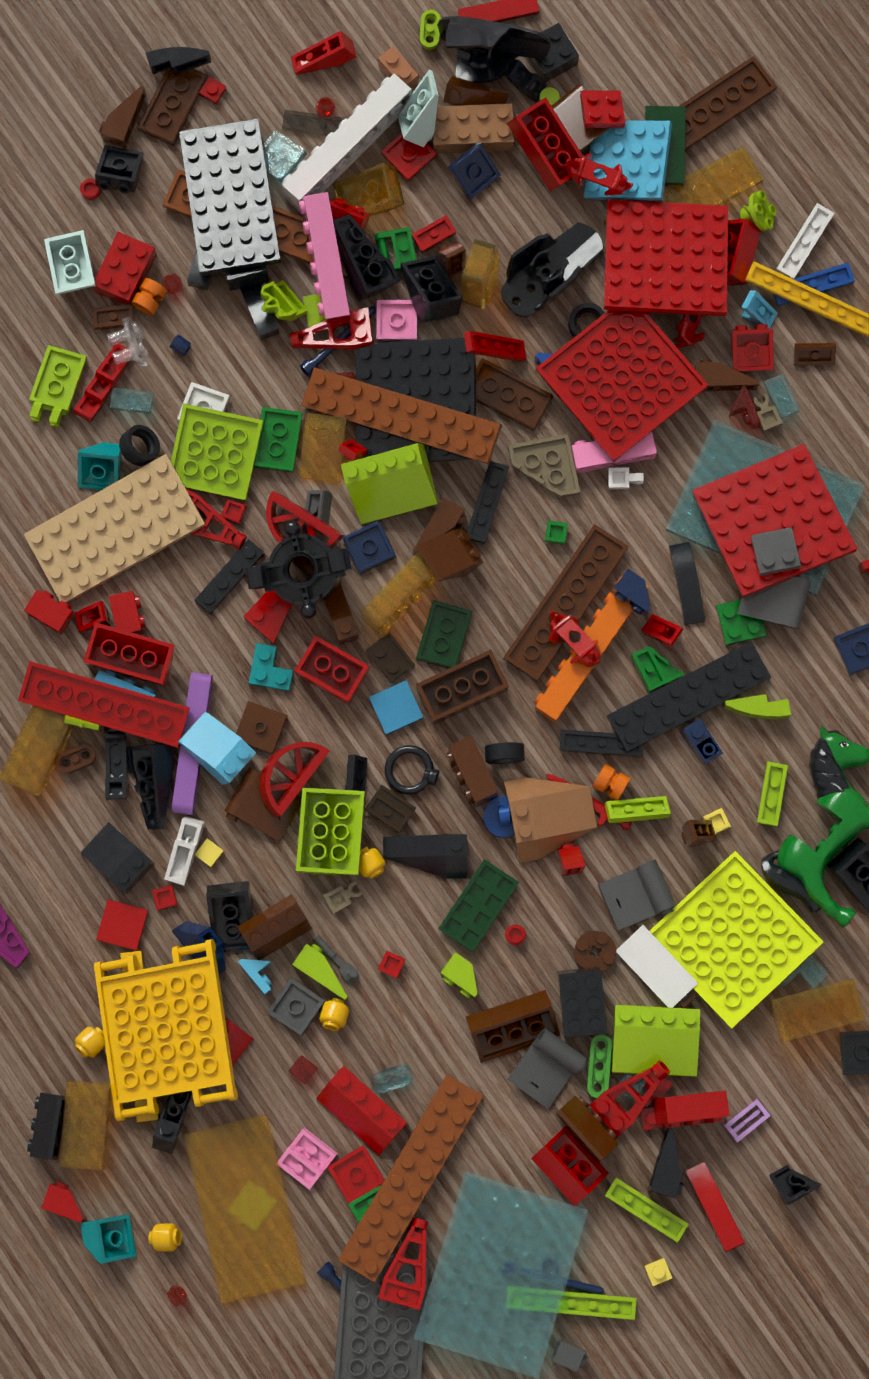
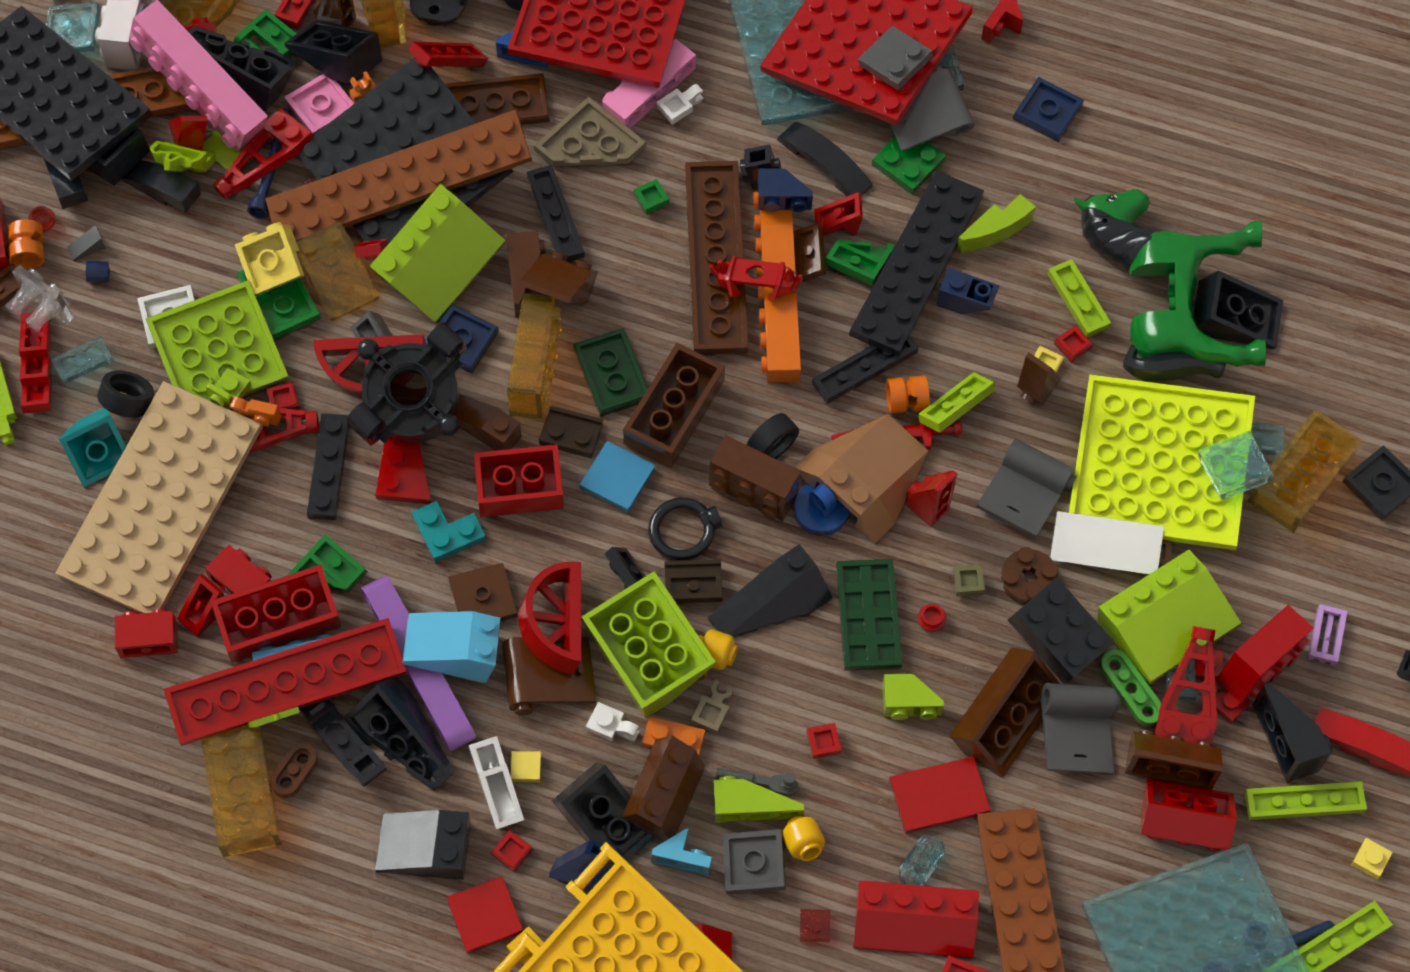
camera: 40 degrees left, 15 degrees down
(186, 643) = (338, 566): none -> green wing
(187, 320) = (86, 244): none -> dark grey piece
(201, 486) = (228, 386): none -> lime bracket
(209, 518) = (258, 411): none -> orange plate
(275, 861) = (608, 722): none -> white plate
(285, 415) = (270, 258): none -> light yellow plate
(299, 285) = (189, 131): none -> red slope
(307, 897) = (660, 728): none -> orange plate
(427, 331) = (361, 87): none -> orange plate
(434, 1046) = (939, 794): none -> red tile
(555, 928) = (968, 580): none -> olive plate
(626, 642) = (810, 252): none -> reddish brown plate
(638, 560) = (757, 158): none -> black brick
(745, 820) = (1073, 343): none -> red tile
(771, 978) = (1235, 465): none -> clear light blue plate

